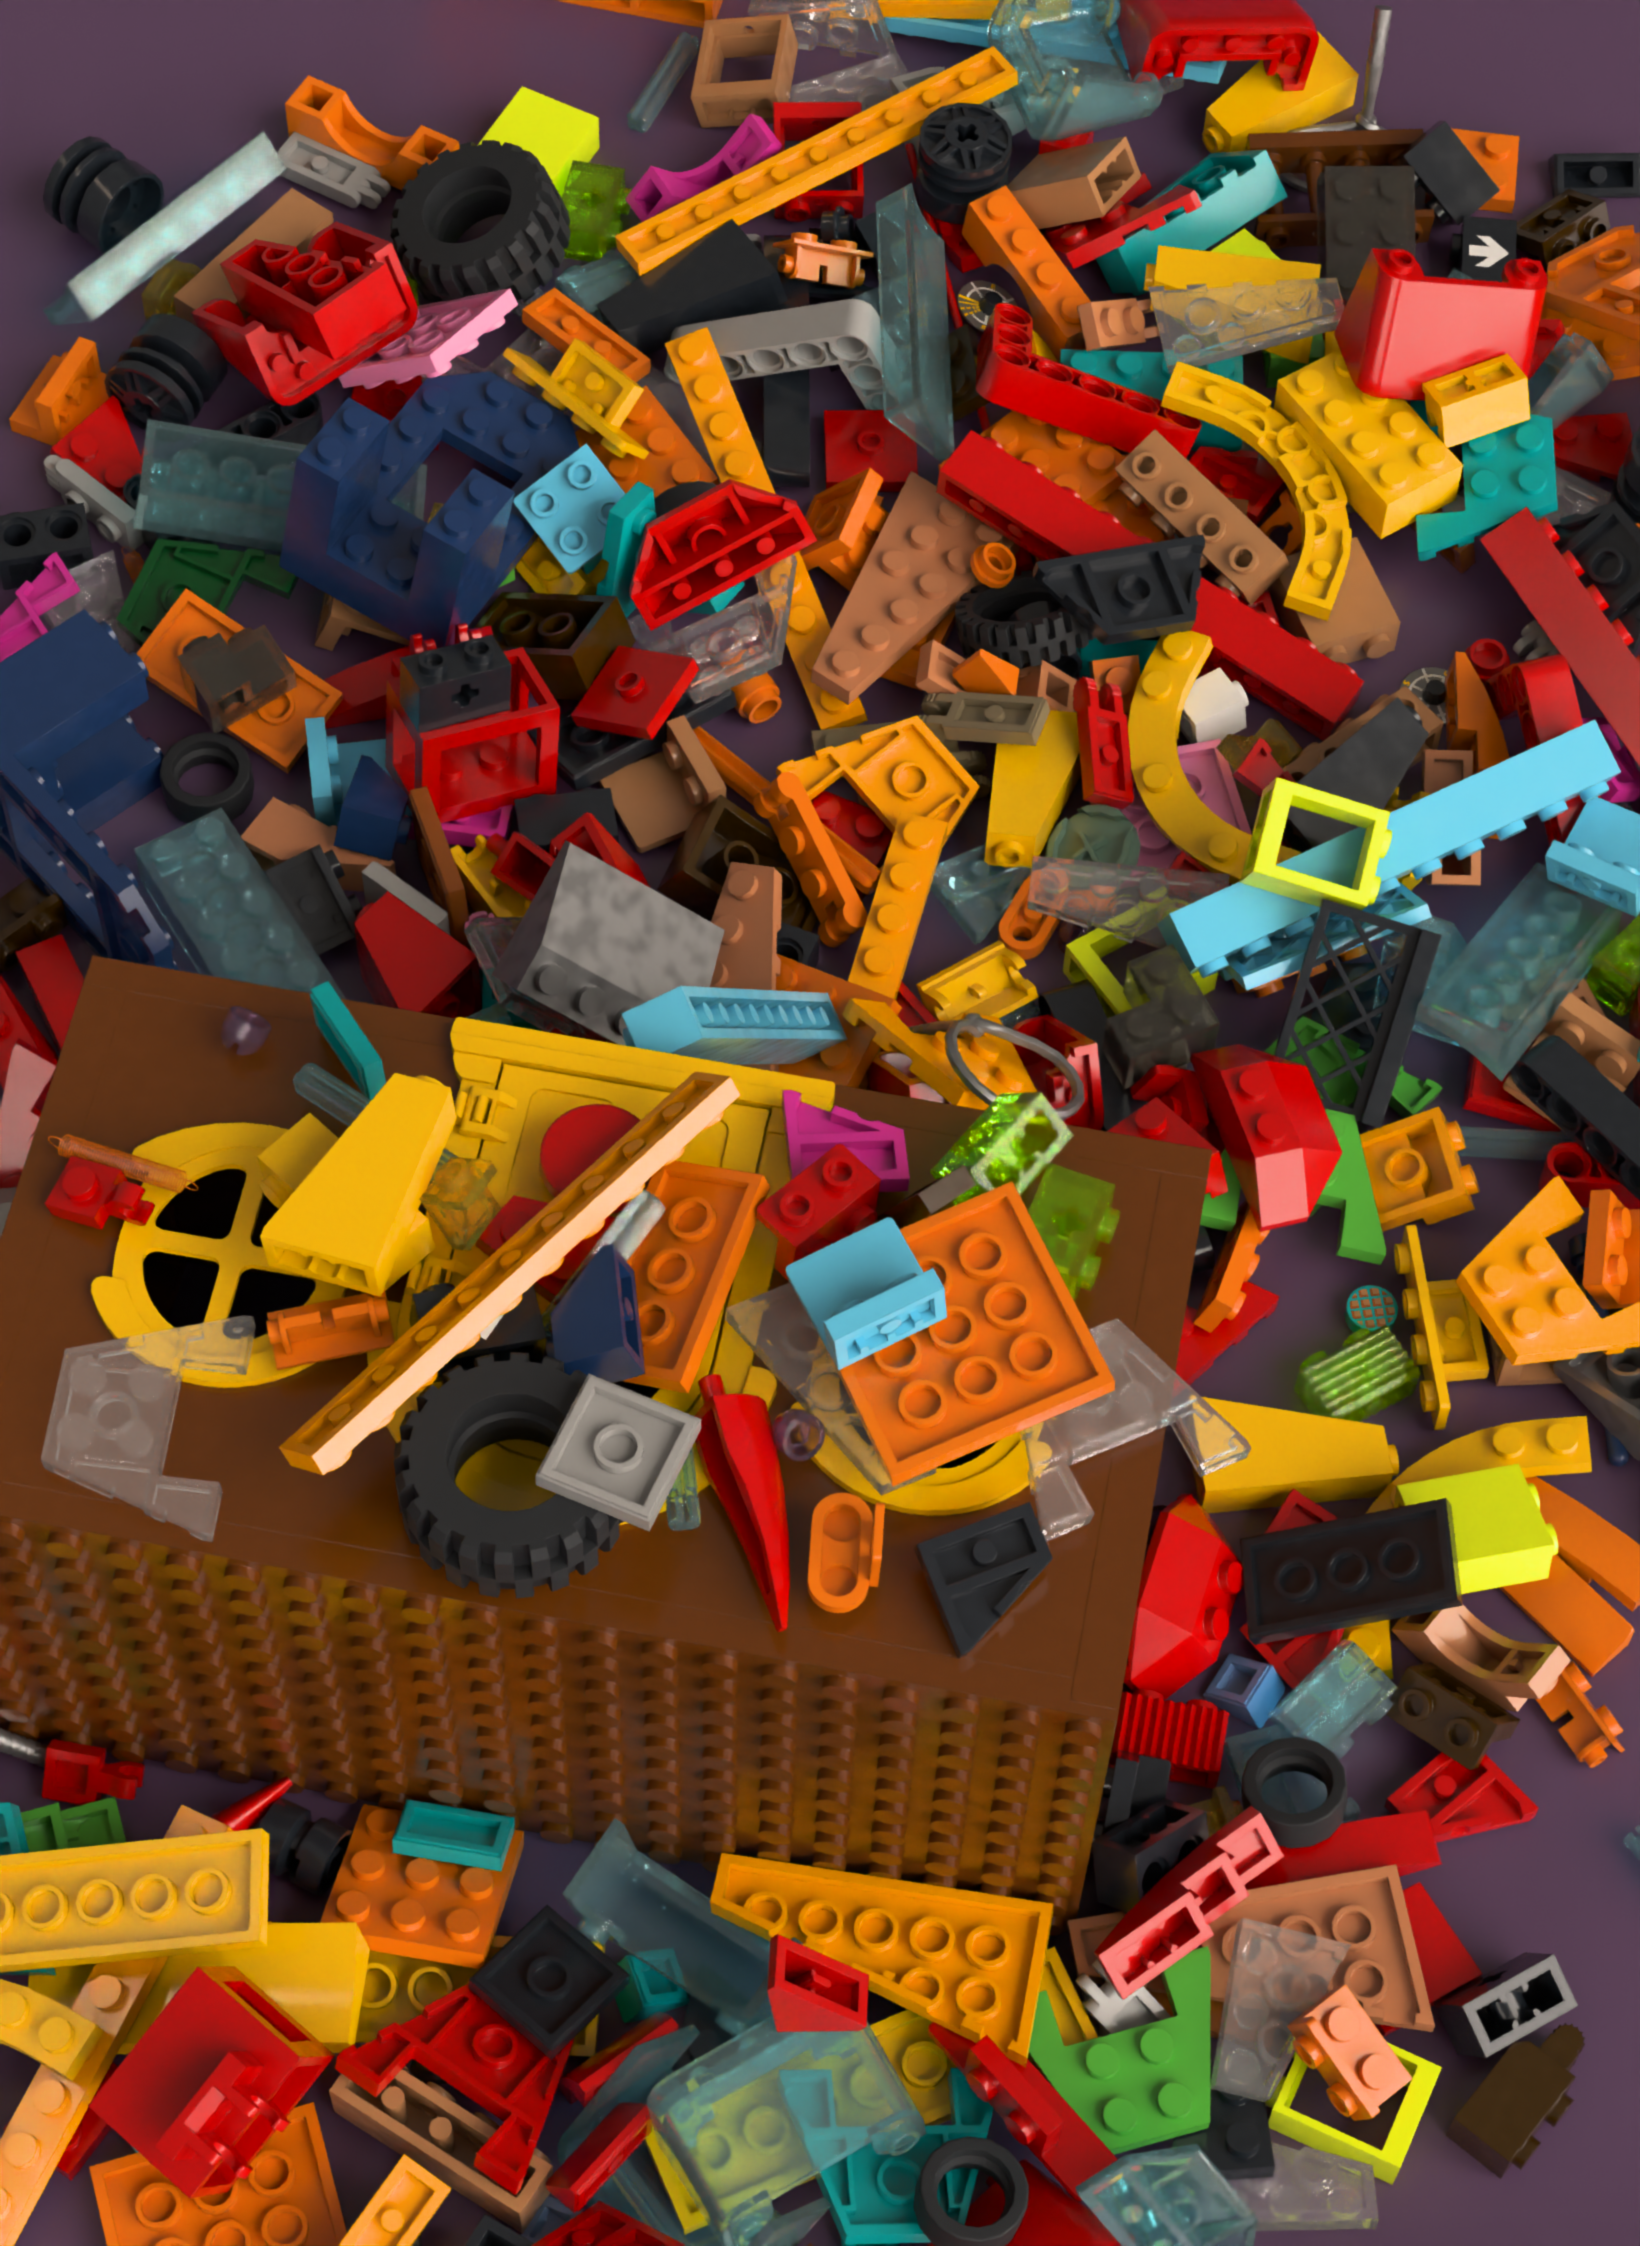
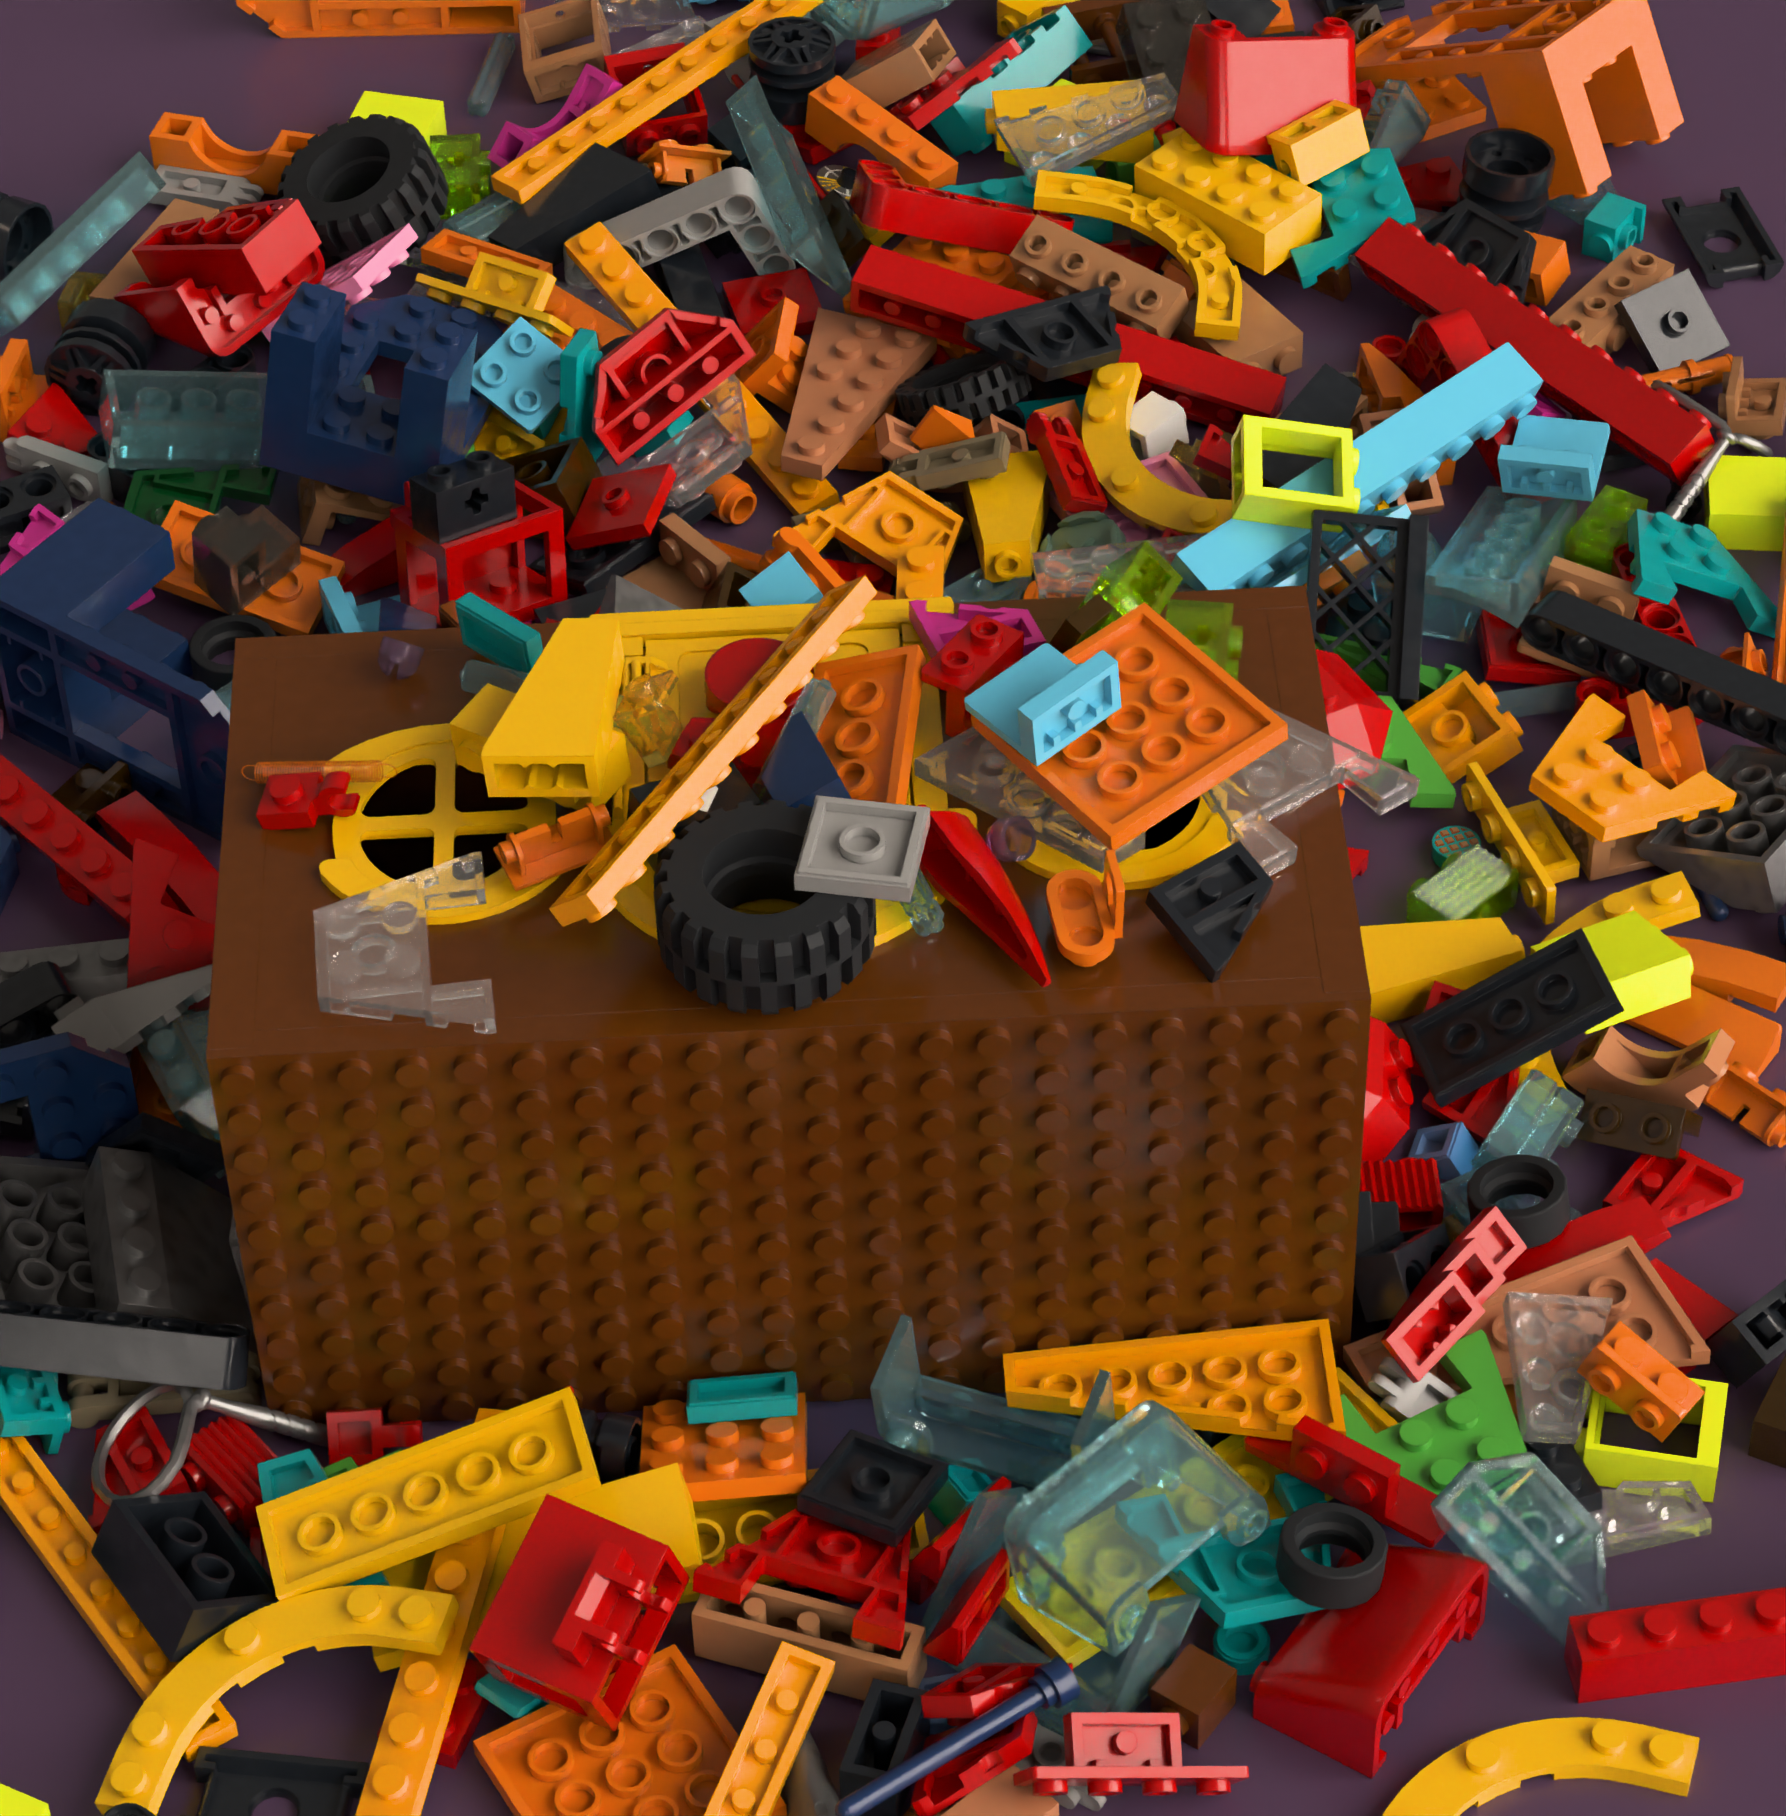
camera: 10 degrees left, 15 degrees down
(814, 1990) = (1134, 1396): red slope -> none
(837, 225) = (689, 135): black plate -> none
(993, 564) = (920, 353): orange plate -> none
(1115, 323) = (970, 161): nougat hinge -> none

